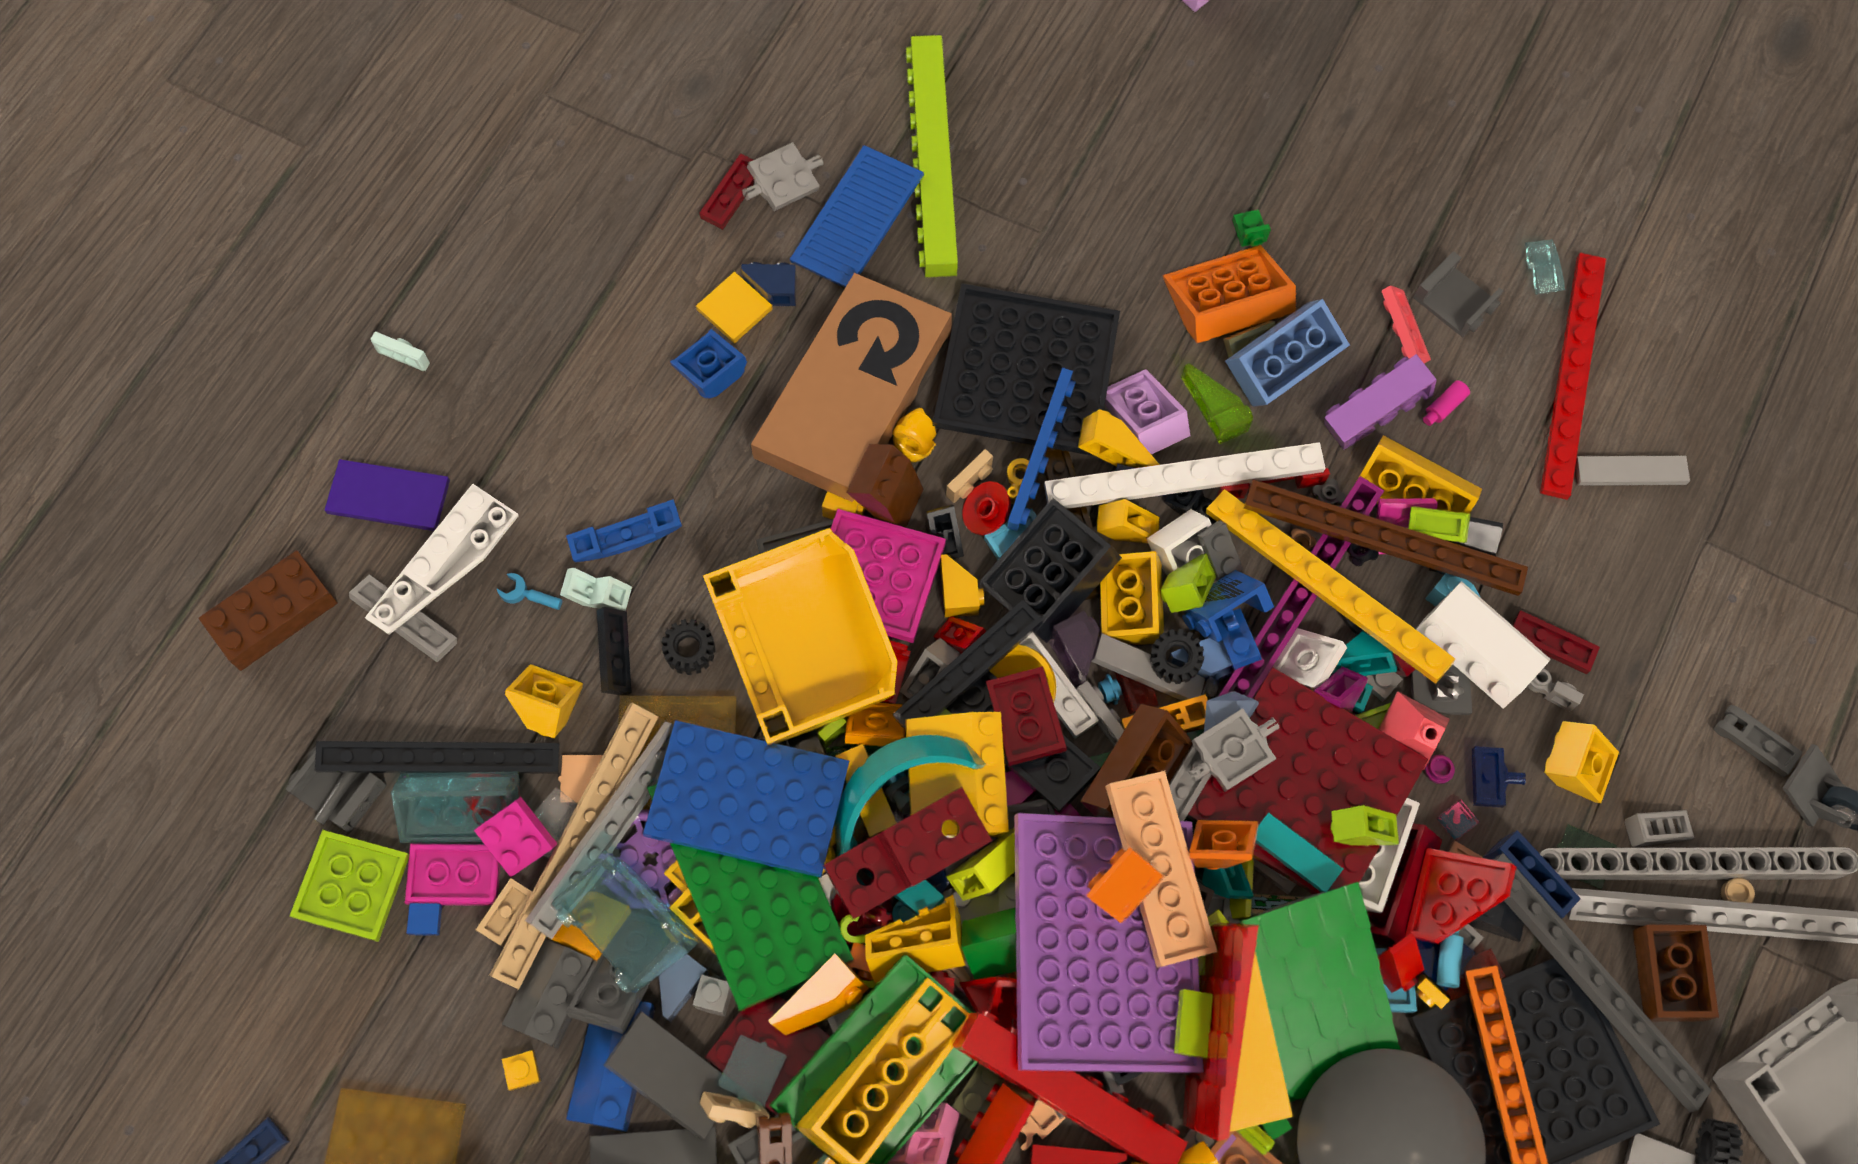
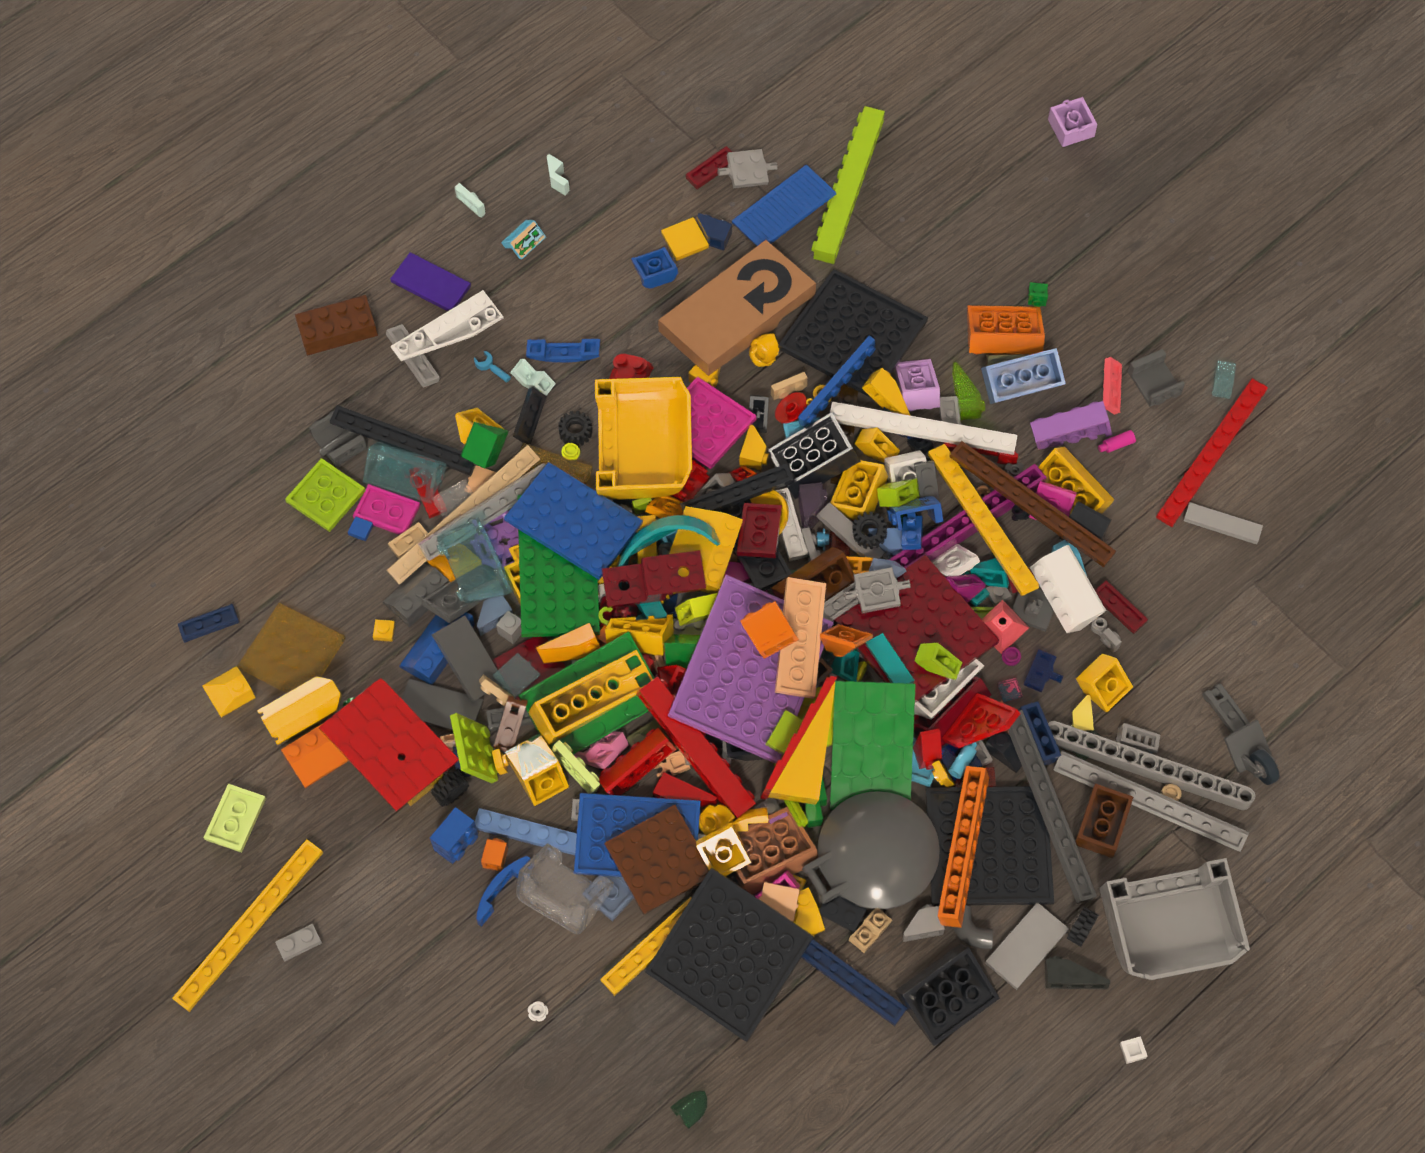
camera: 25 degrees right, 5 degrees down
(502, 382) = (524, 238): none -> panel
(509, 267) = (555, 171): none -> light aqua slope
(515, 837) = (430, 498): dark pink plate -> none
(565, 724) = (484, 444): none -> green slope
(695, 684) = (570, 451): none -> neon yellow plate
(734, 536) = (630, 366): none -> red slope
(886, 484) = (732, 372): reddish brown slope -> none
(1206, 438) = (949, 410): none -> light grey plate
(1440, 523) = (1070, 506): lime tile -> none
(1574, 821) = (1082, 715): none -> light yellow slope

